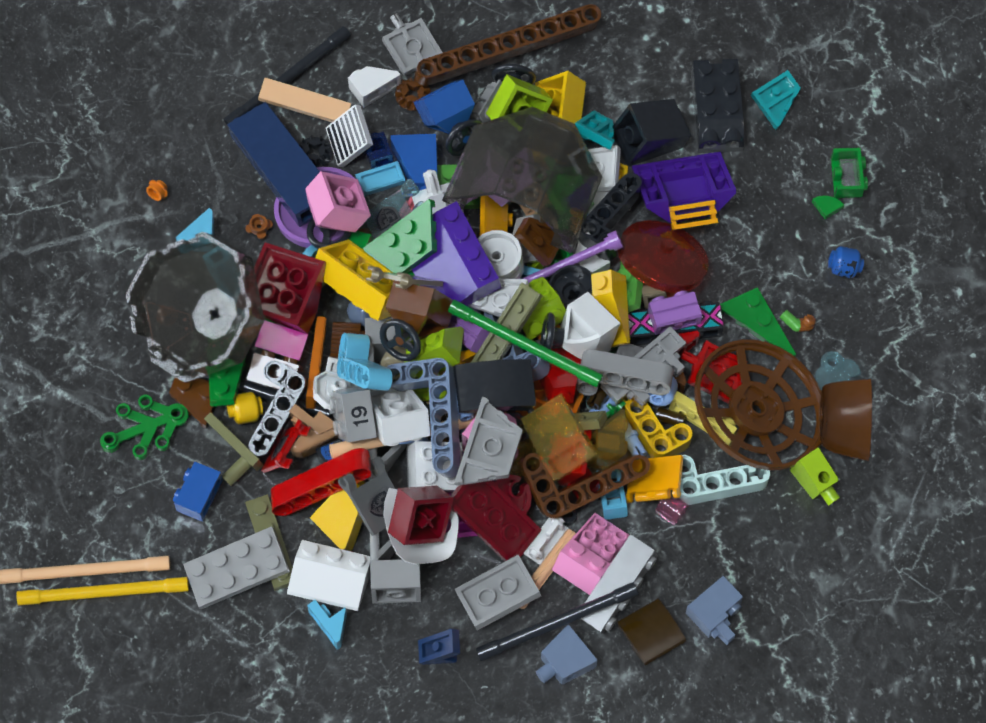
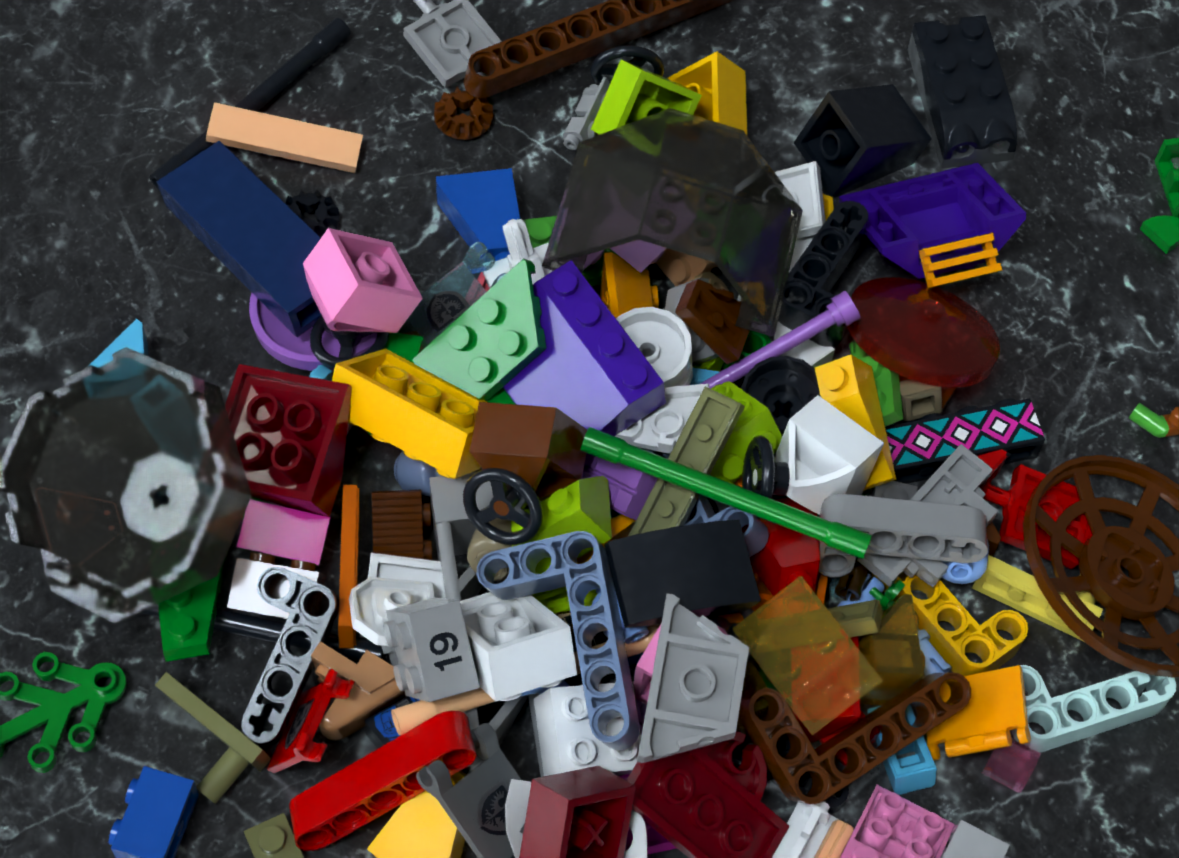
camera: 10 degrees left, 5 degrees down
(157, 190) = (44, 300): orange plate -> none
(194, 397) = (135, 648): reddish brown wing -> none
(246, 408) = (231, 659): yellow head -> none
(256, 220) = (225, 334): dark orange plate -> none
(349, 136) = (366, 183): tile -> none
(355, 366) = (424, 566): medium azure beam -> none
(372, 83) = (395, 101): white slope -> none
(380, 152) = (416, 205): clear blue brick -> none
(381, 178) = (431, 248): medium azure tile -> none
(405, 279) = (501, 399): dark tan flag -> none
(449, 112) = (530, 135): blue piece -> none
(597, 128) = (778, 140): teal wing -> none
(670, 417) = (981, 602): dark brown pin -> none
(676, 311) = (967, 418): medium lavender brick -> none
(755, 315) = (1090, 419): green wing -> none
(776, 97) = (1052, 73): teal wing -> none

